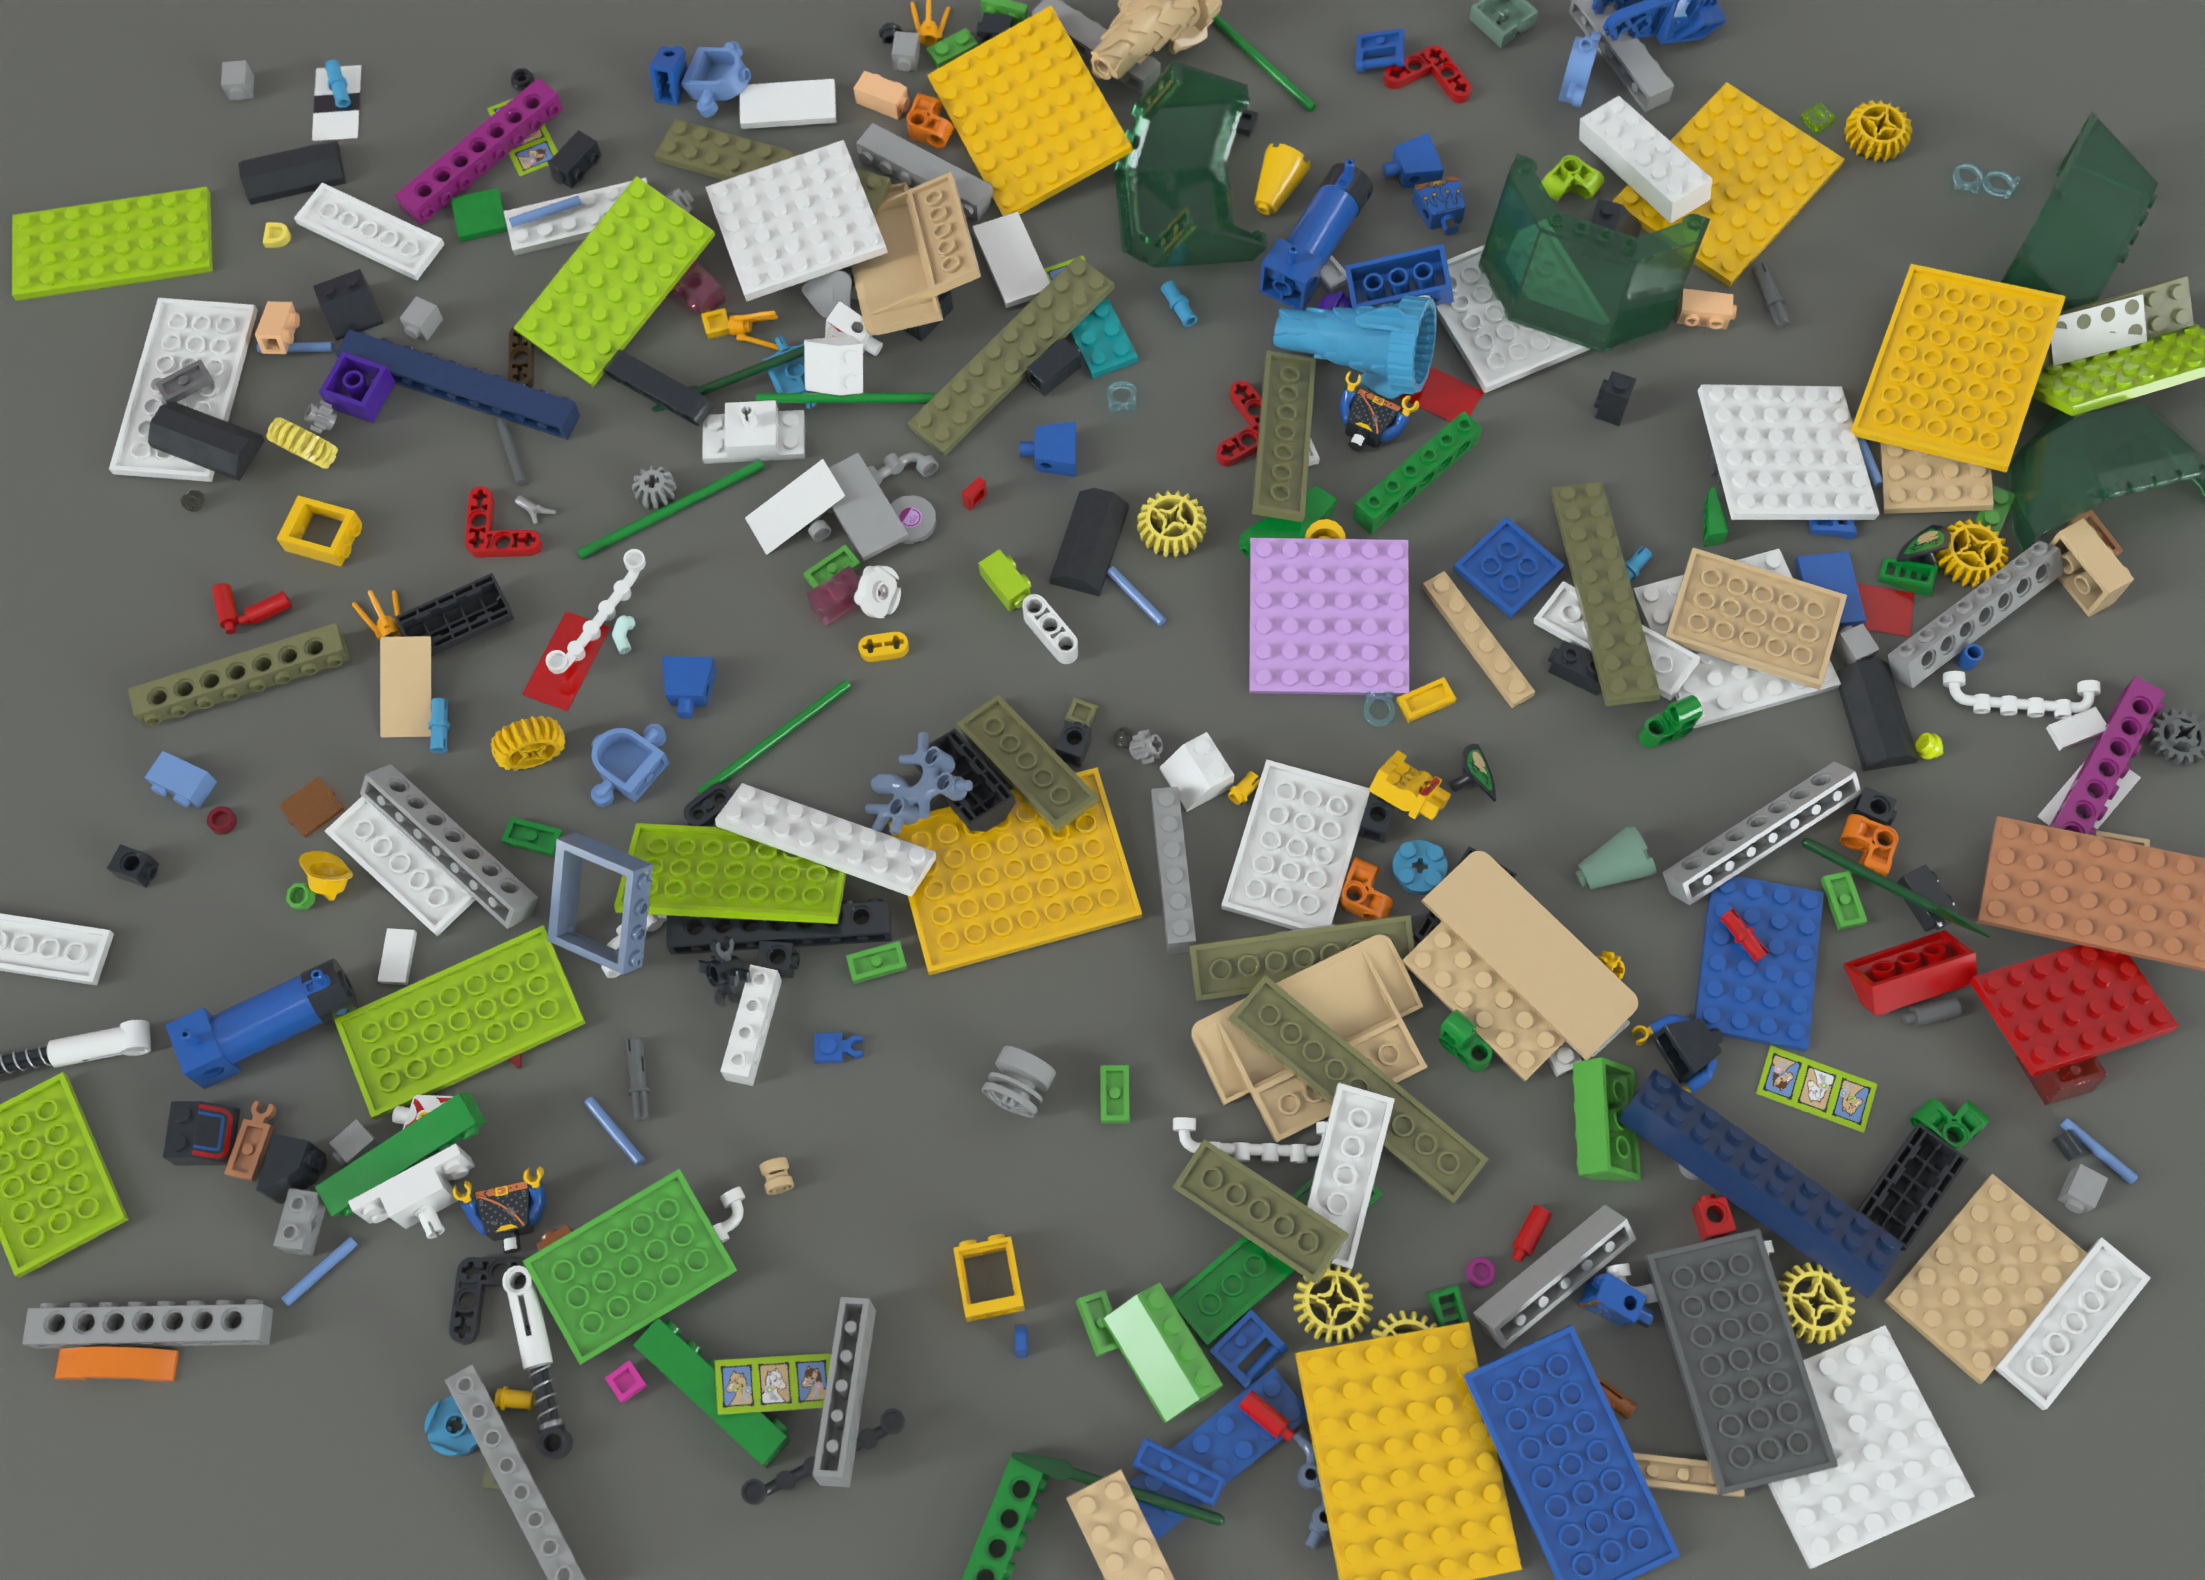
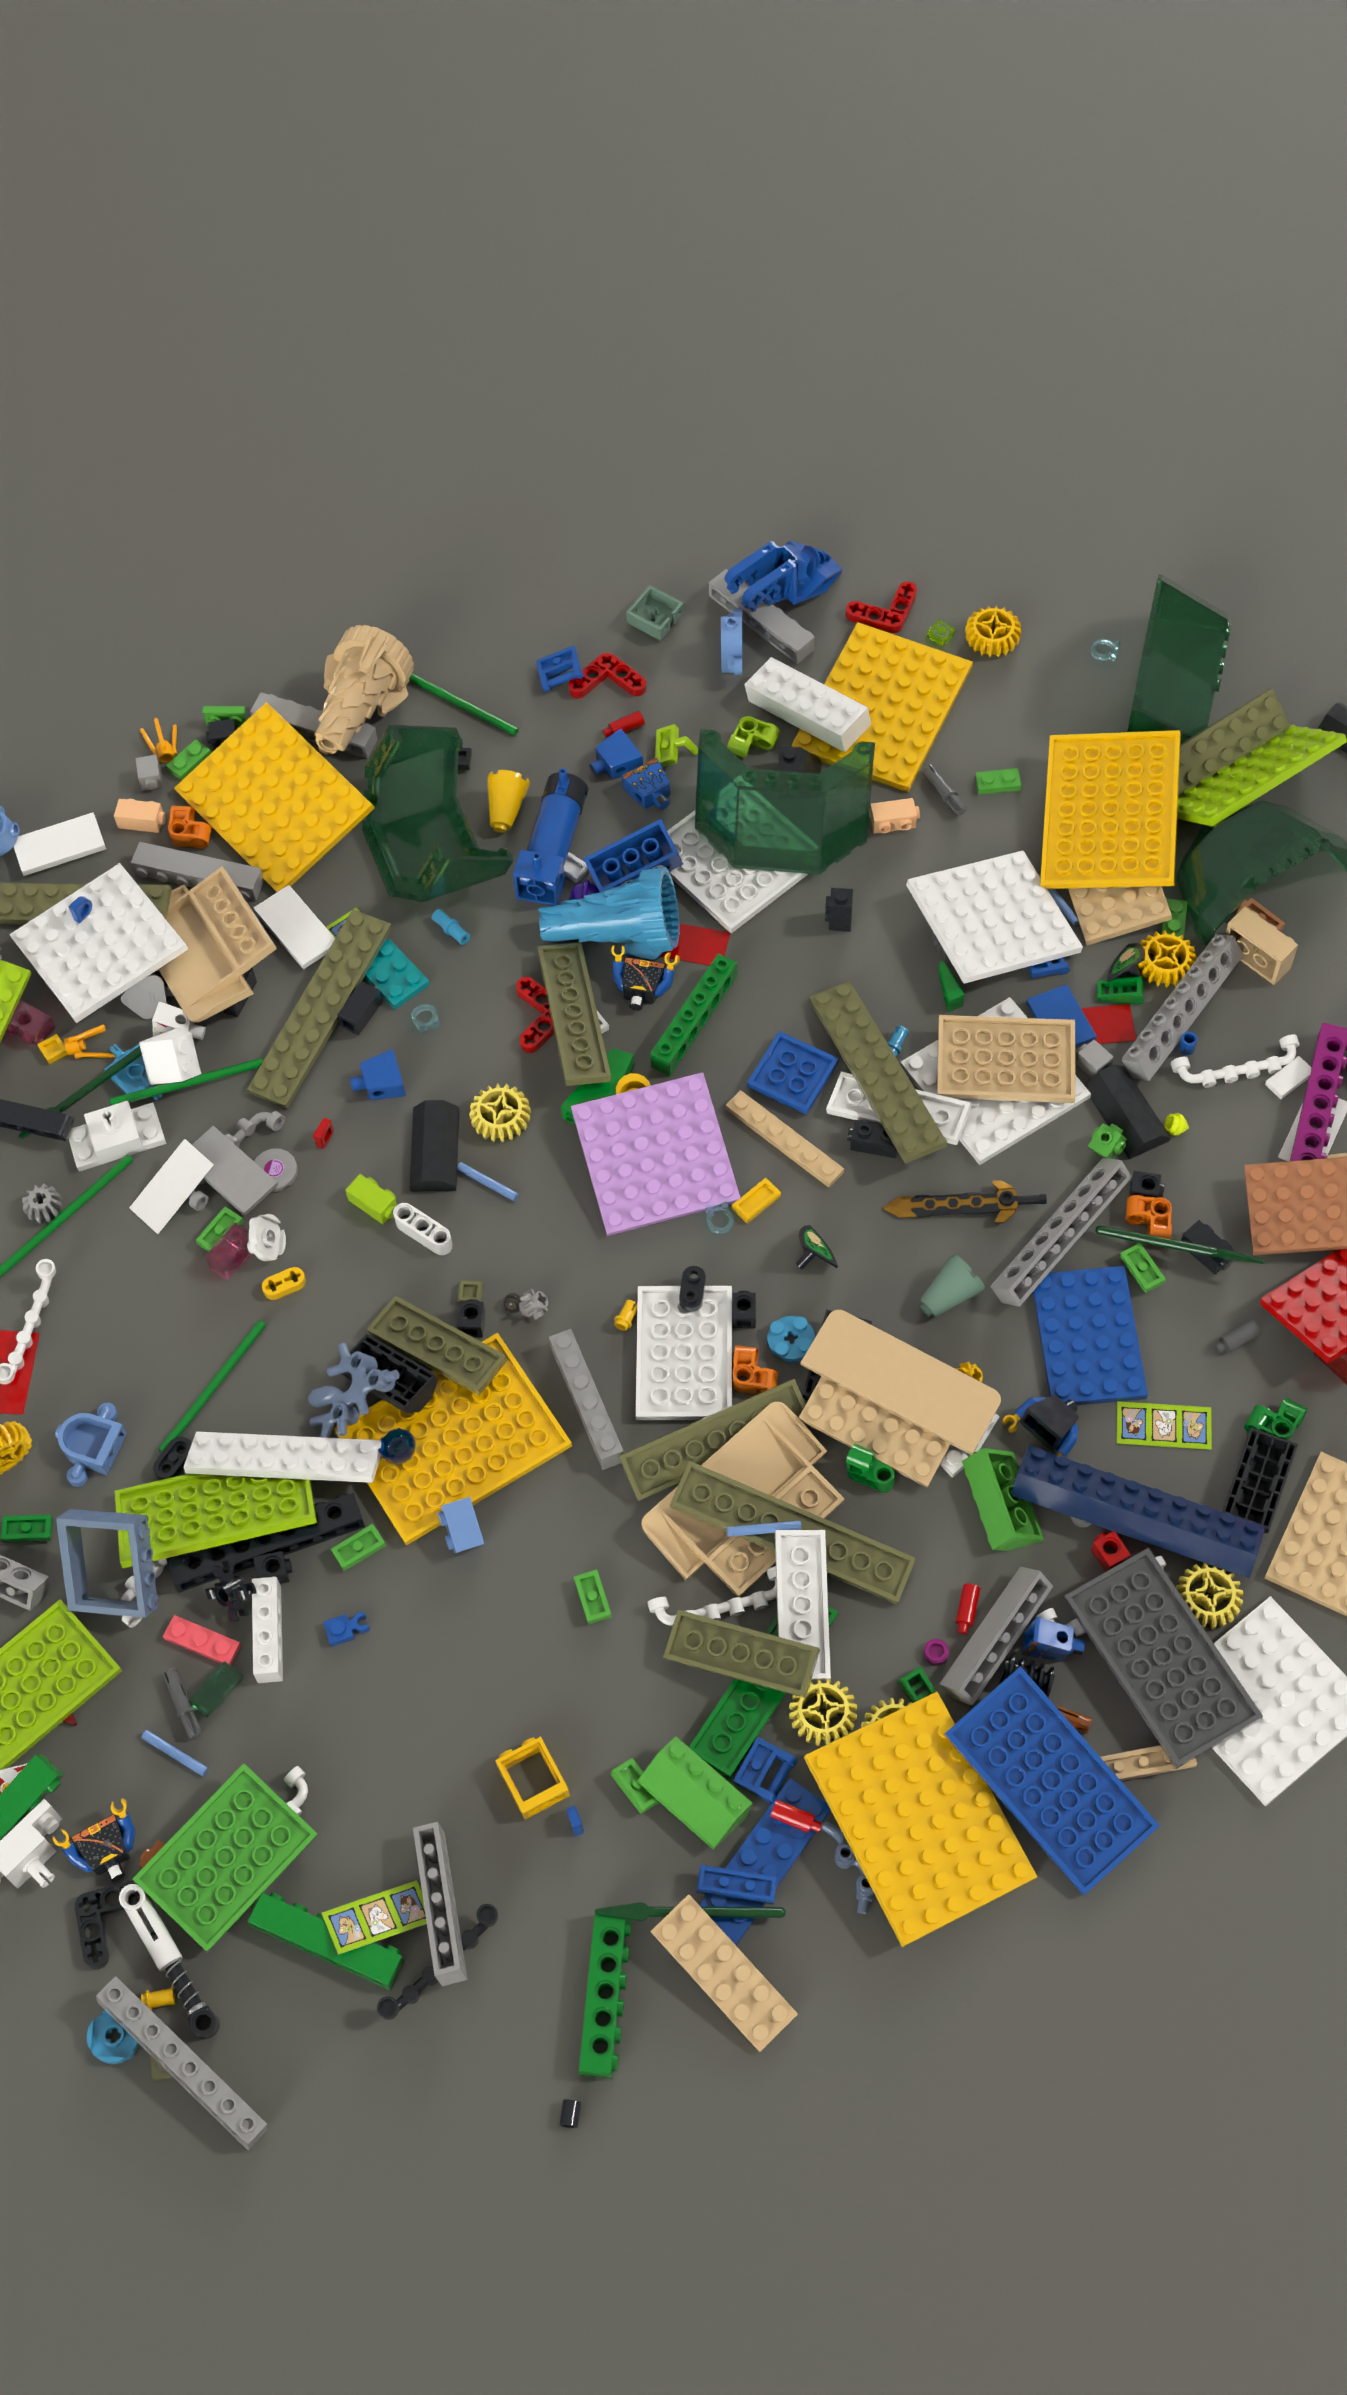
camera: 15 degrees left, 5 degrees down
(619, 633) = (49, 1334): light aqua arm -> none
(626, 1381) = (250, 1955): dark pink plate -> none
(677, 1074) = (215, 1689): none -> clear green slope
(679, 1015) = (201, 1640): none -> coral plate
(688, 682) = (123, 1360): blue torso -> none
(776, 1175) = (326, 1747): tan wheel -> none
(786, 178) = (80, 908): none -> blue tile
(888, 31) = (129, 760): black plate -> none
(950, 863) = (397, 1446): none -> hair
(994, 971) = (461, 1525): none -> medium blue brick
(1016, 1085) = (509, 1608): light grey wheel -> none
(1198, 772) = (583, 1312): white slope -> none
(1326, 778) = (692, 1287): none -> black plate
(1326, 1076) = (762, 1528): none -> medium blue bar
(1409, 788) = (763, 1276): yellow hips -> none
(1437, 129) = (626, 723): none -> red cylinder
(1475, 163) = (667, 745): none -> lime plate
(1589, 1337) = (1043, 1679): none -> black piece
(1672, 723) = (963, 1164): green piece -> none
(1704, 778) = (1002, 1201): none -> sword
(1744, 935) = (1070, 1317): red pin -> none
(1767, 83) = (891, 615): none -> red beam
(1835, 301) = (998, 781): none -> bright green plate
(1836, 744) = (1107, 1141): none -> bright green brick
(1911, 972) = (1212, 1310): red slope -> none
(1960, 184) = (1085, 657): clear light blue piece -> none
(2079, 343) = (1203, 765): white sticker -> none

